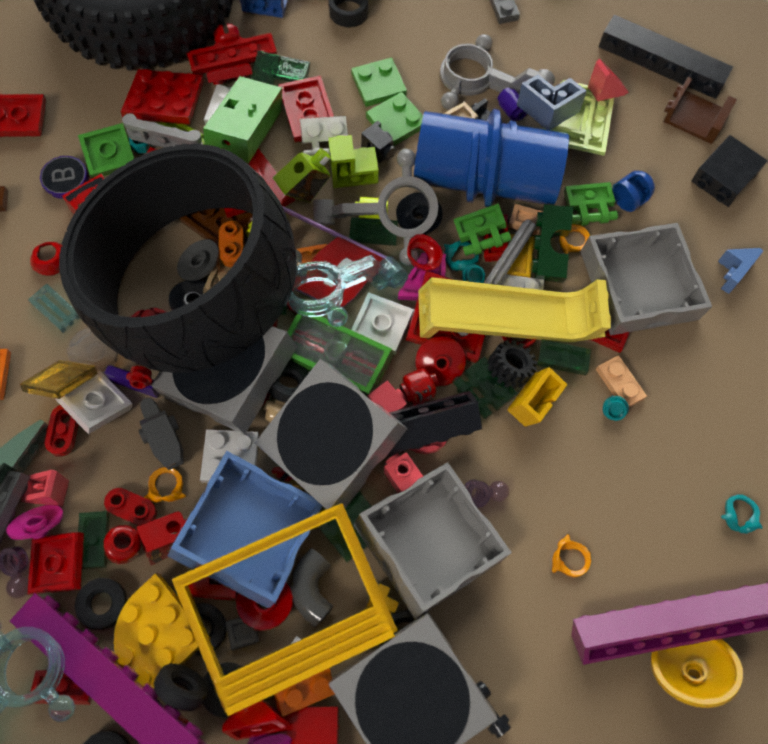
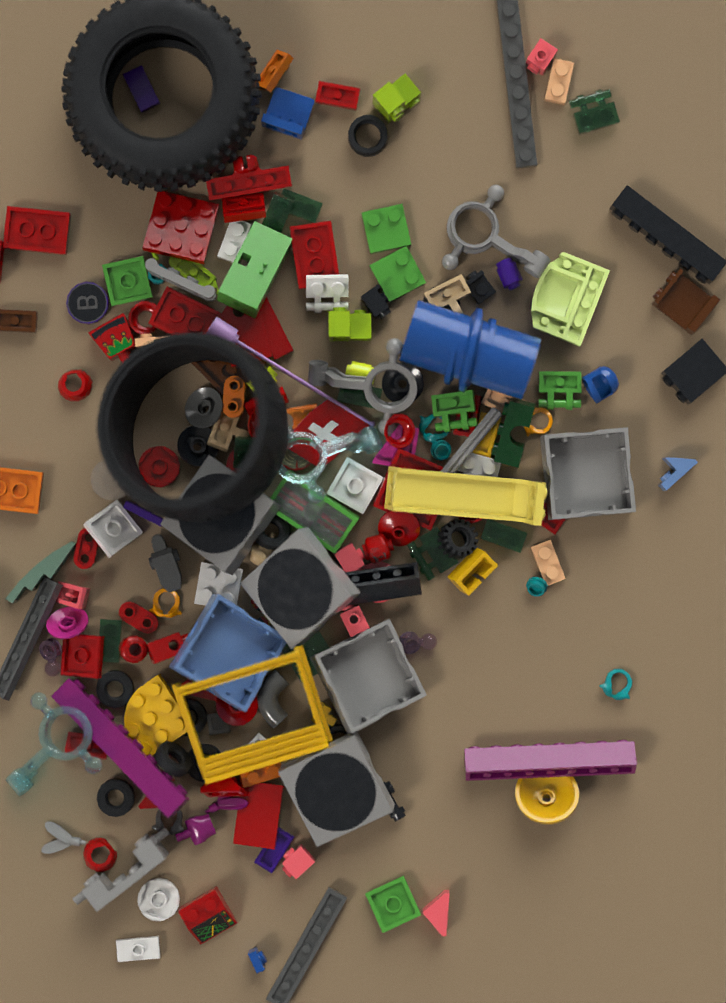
camera: 10 degrees right, 20 degrees up
(58, 379) = (86, 508): clear yellow tile -> none
(67, 320) = (91, 448): clear light blue tile -> none
(139, 377) = (152, 519): red plate -> none
(304, 175) = (309, 337): lime torso -> none
(548, 103) = (538, 295): sand blue brick -> none
(558, 564) = (464, 704): light orange piece -> none
(605, 83) = (602, 266): coral slope -> none

